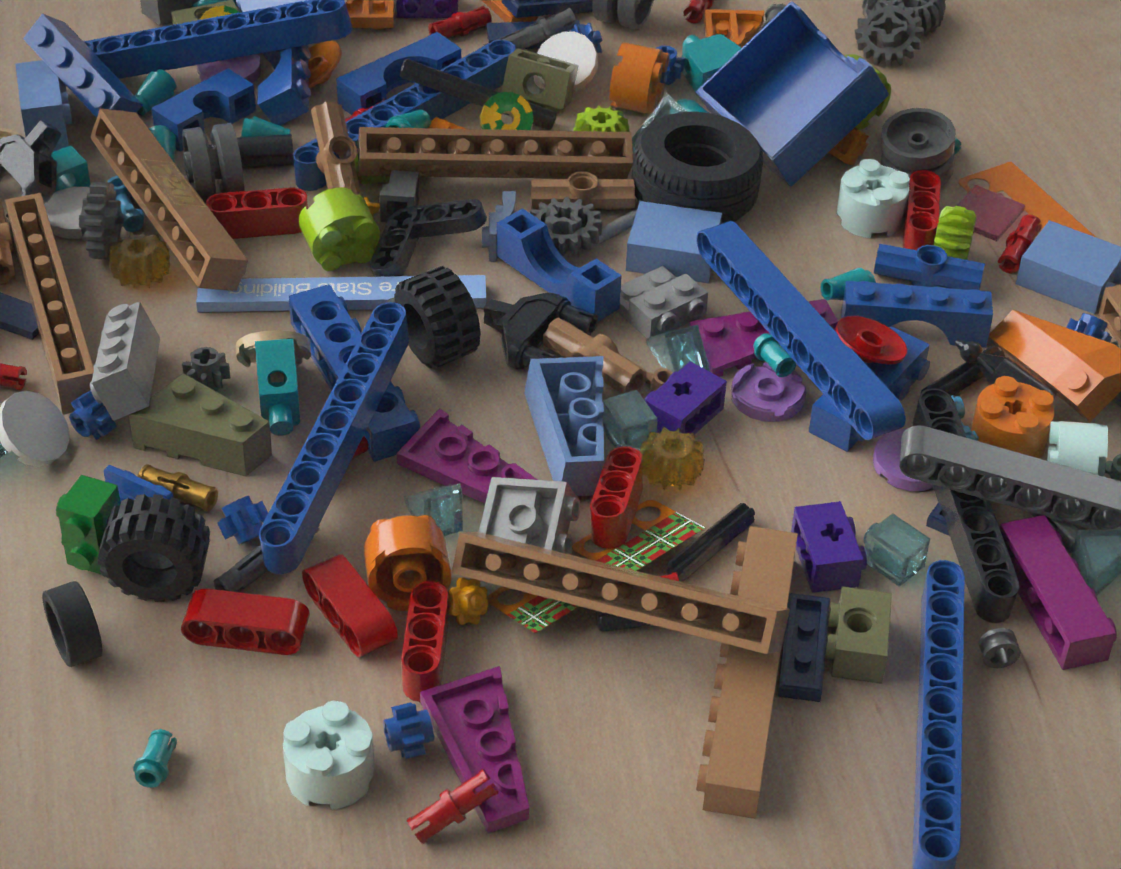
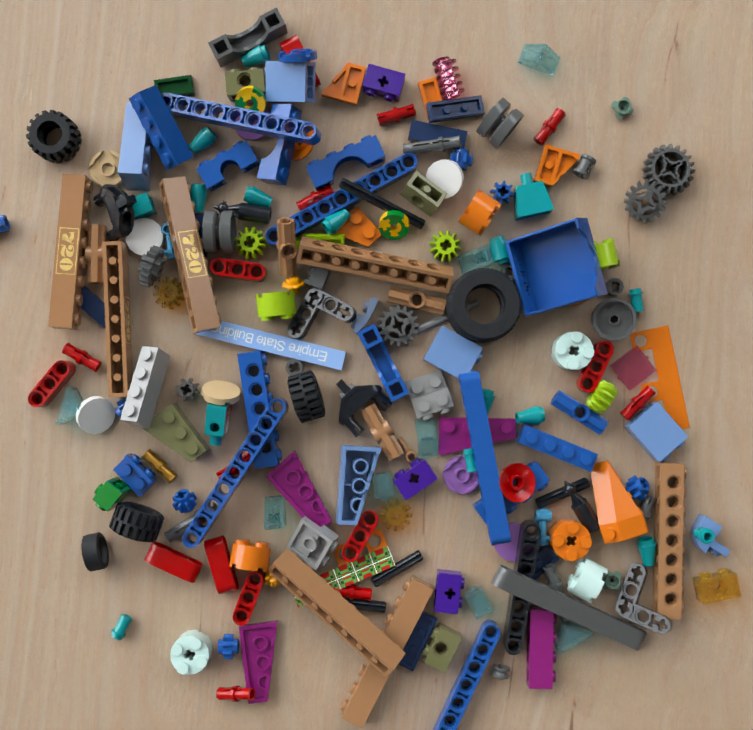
camera: 20 degrees right, 45 degrees up
(269, 174) = (257, 245): none -> lime gear

